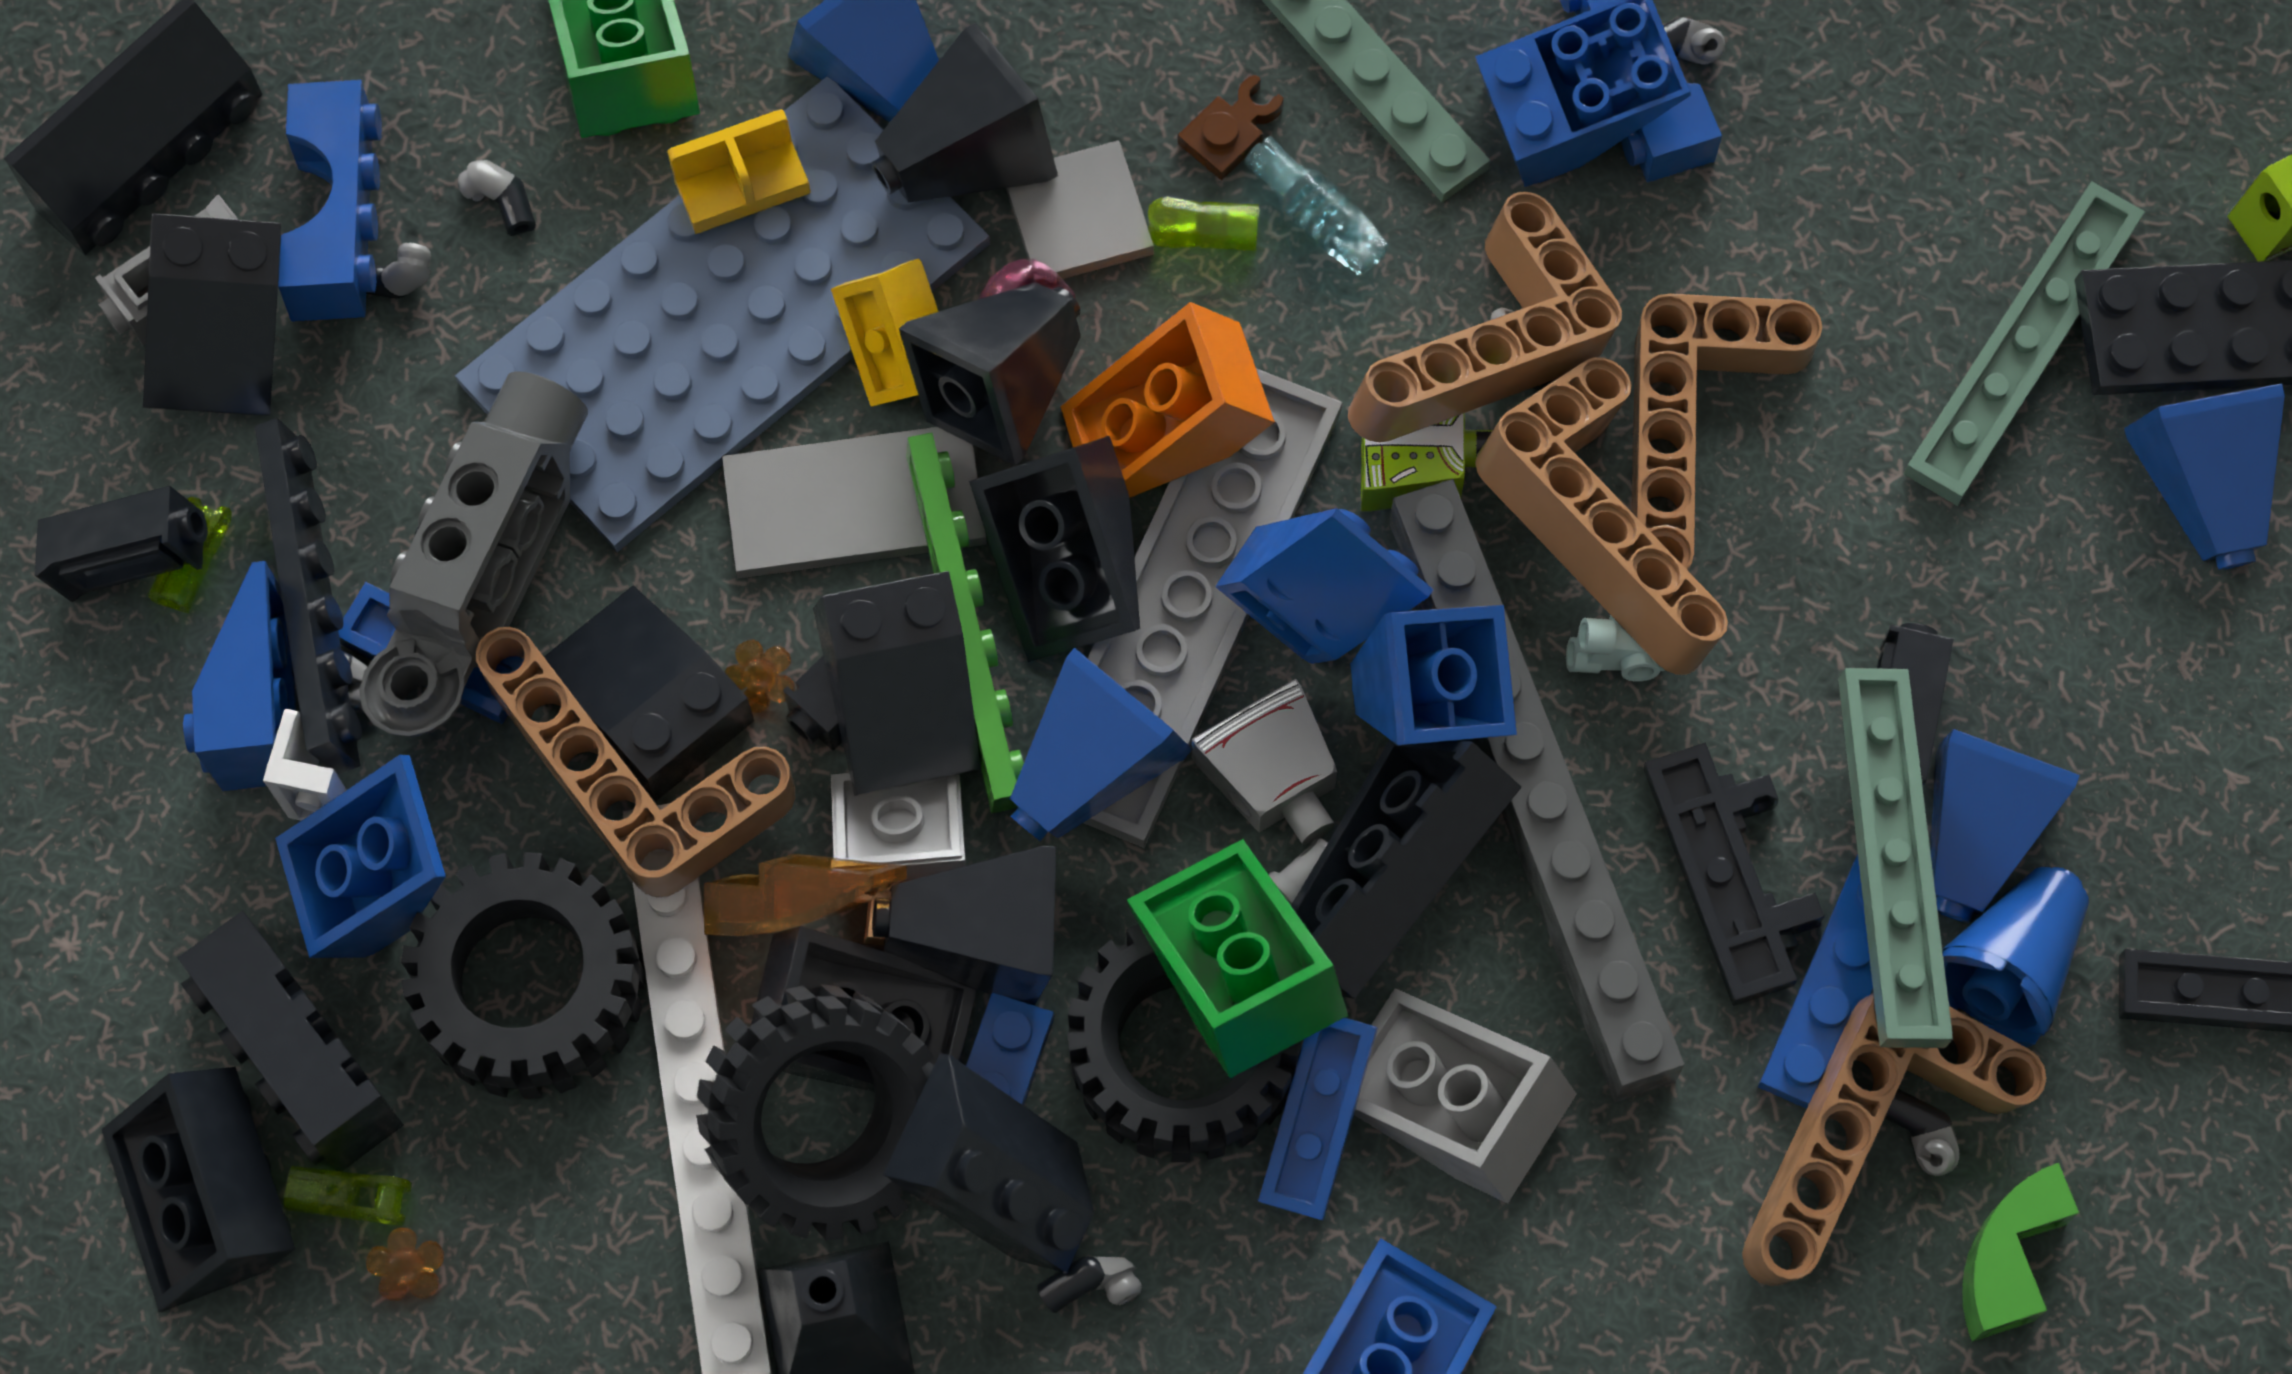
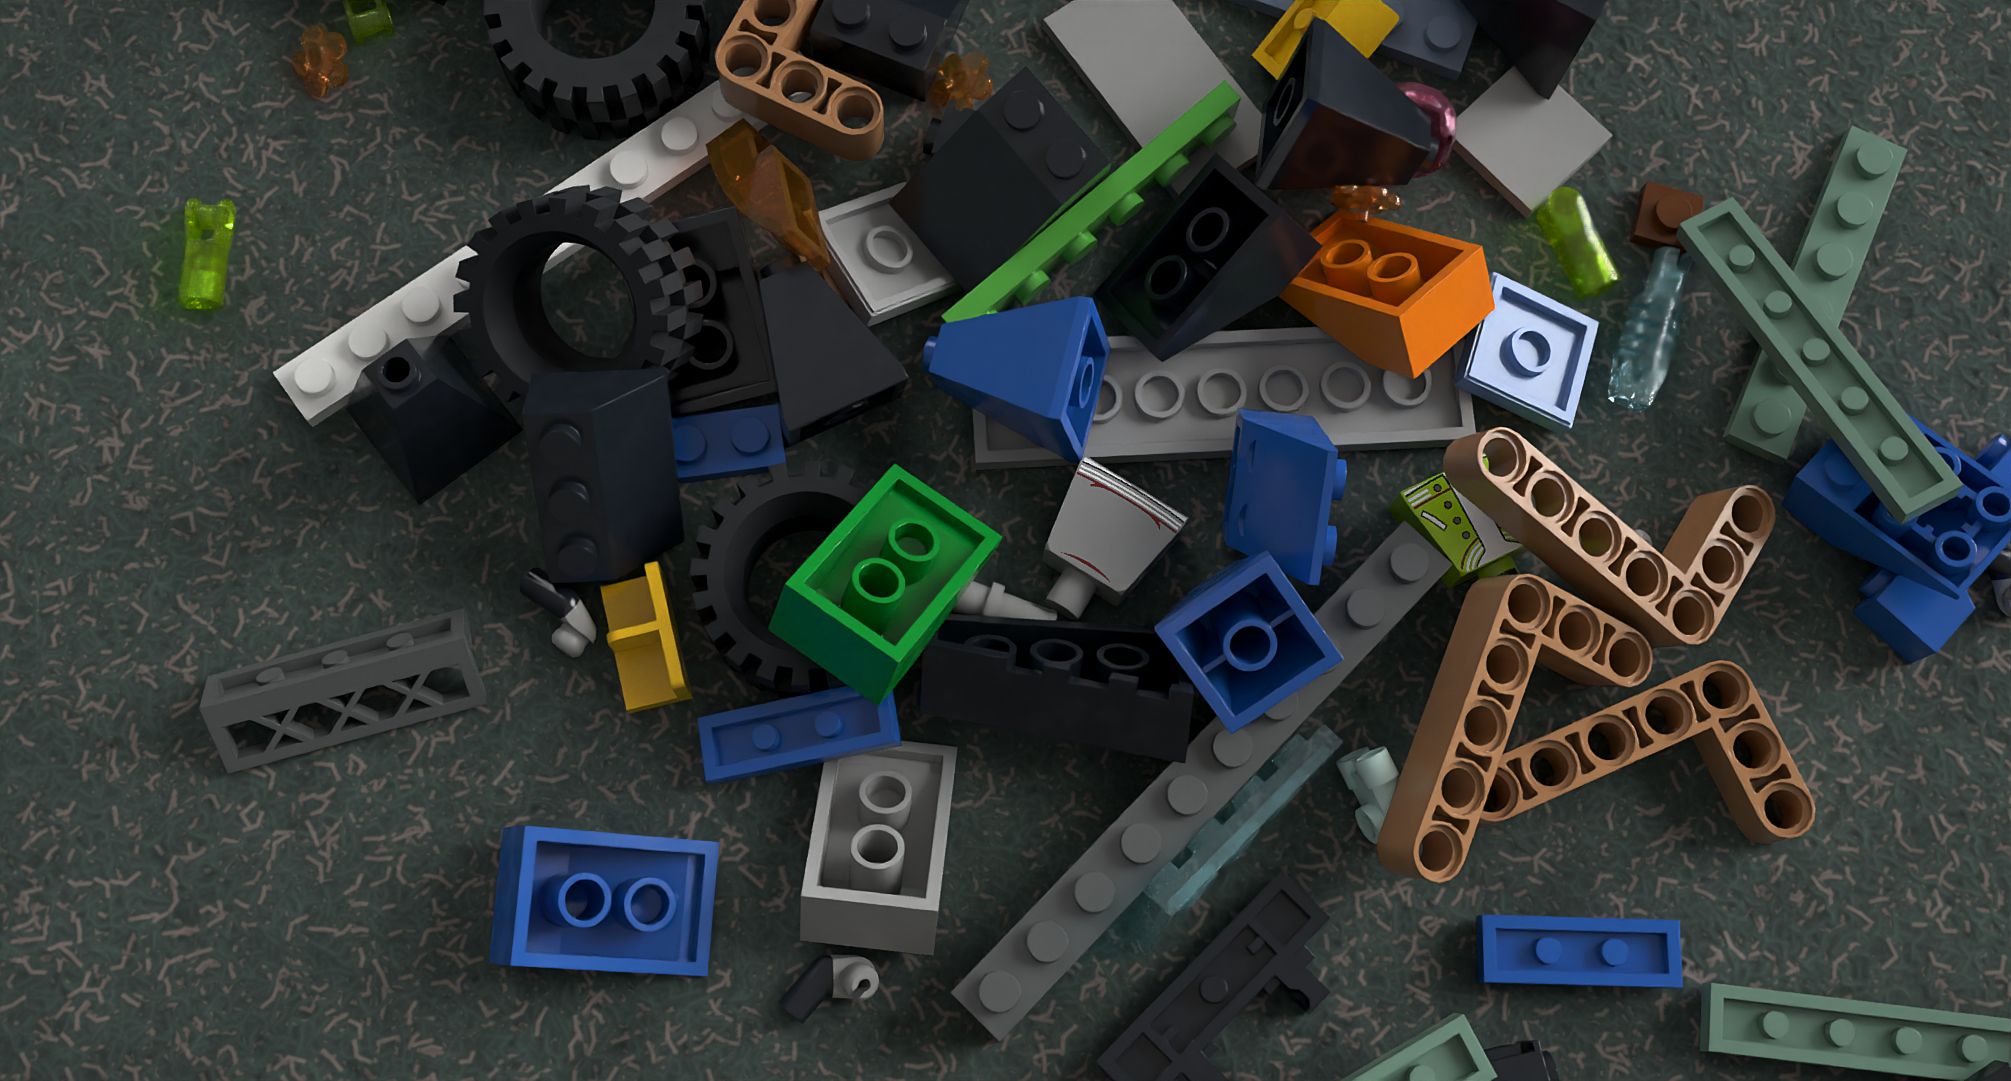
camera: 55 degrees right, 5 degrees up
(1074, 380) = (1365, 199): none -> clear orange plant
(1160, 1213) = (646, 641): none -> yellow panel
(1291, 318) = (1528, 355): none -> tile
(1424, 88) = (1819, 362): none -> sand green plate
(1551, 1196) = (830, 978): none -> arm
(1600, 792) = (1221, 845): none -> clear light blue wing
(1829, 557) = (1578, 951): none -> blue plate

